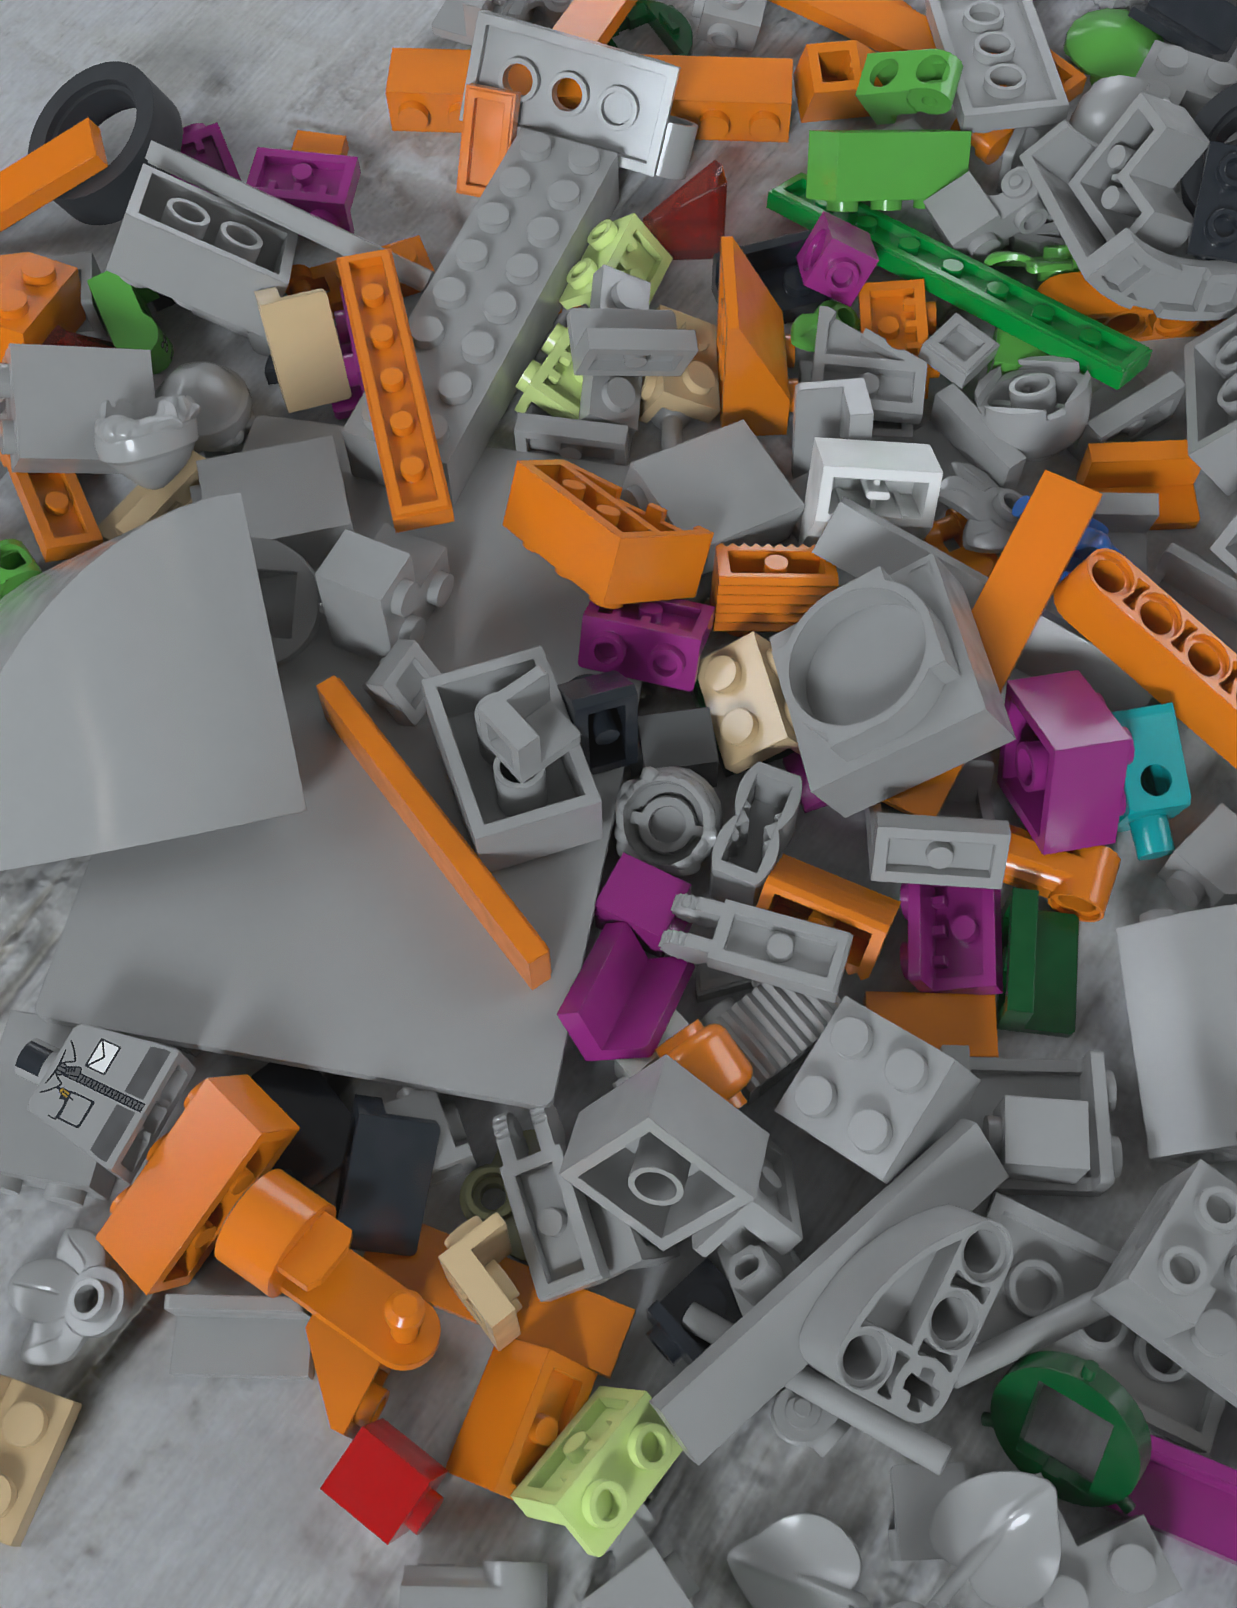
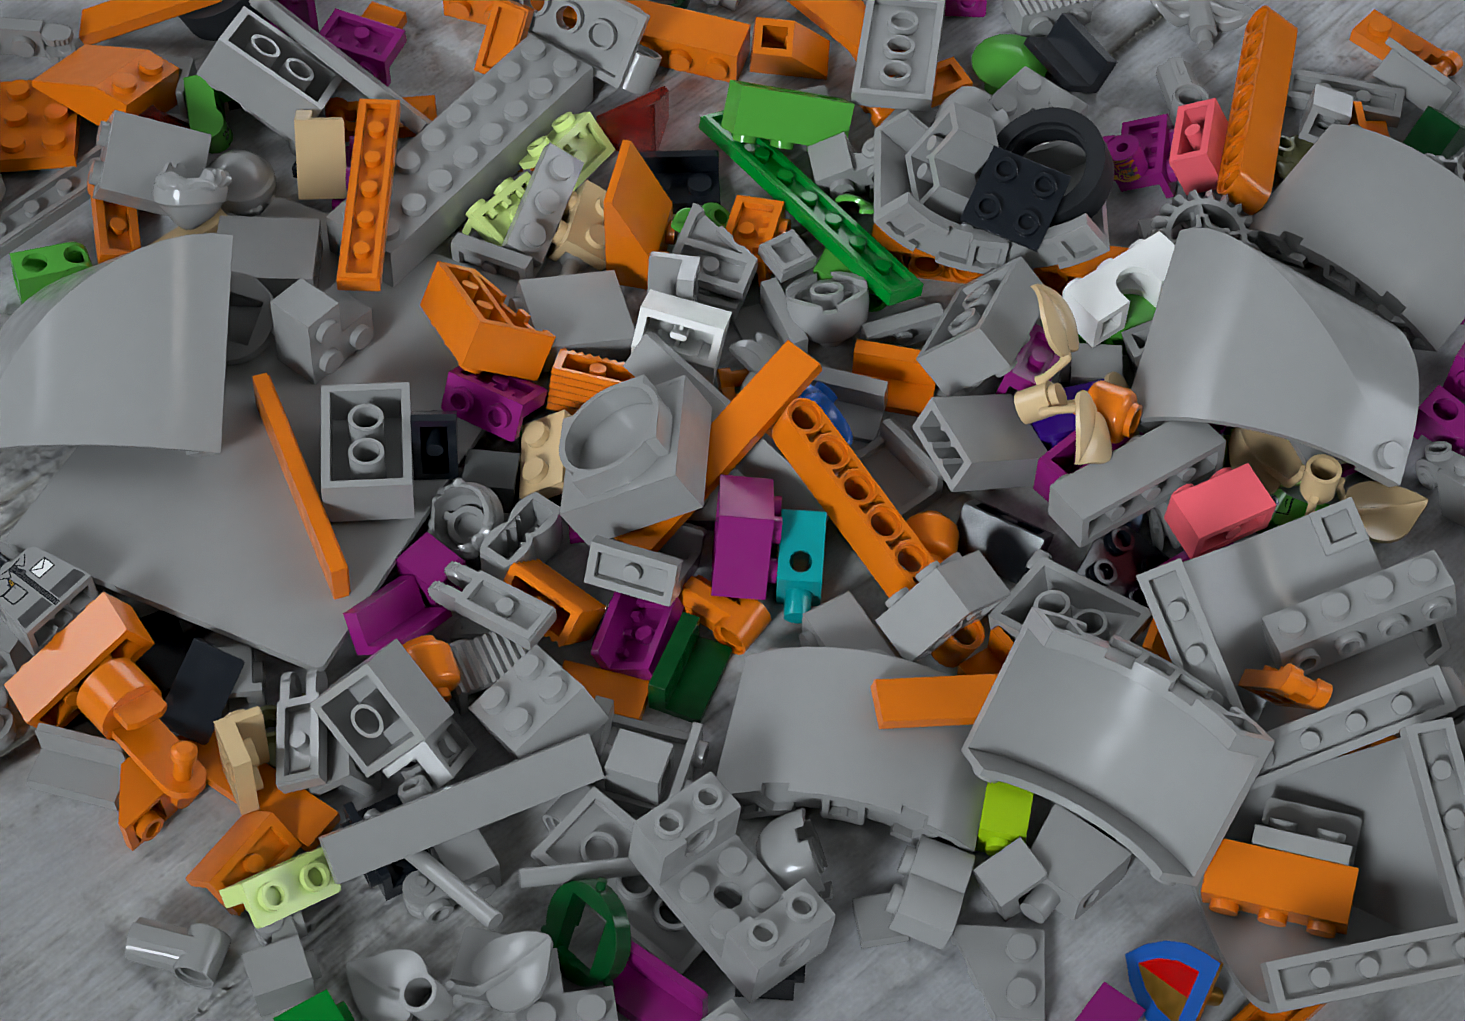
camera: 10 degrees right, 10 degrees down
(386, 1482) = (144, 867): red brick -> none
(398, 682) = (306, 389): light grey tile -> none
(526, 726) = (377, 424): light grey panel -> none
(628, 342) = (548, 199): light grey panel -> none
(837, 259) = (724, 174): magenta brick -> none
(909, 1310) = (487, 824): light grey beam -> none
(911, 83) = (827, 60): bright green leg -> none

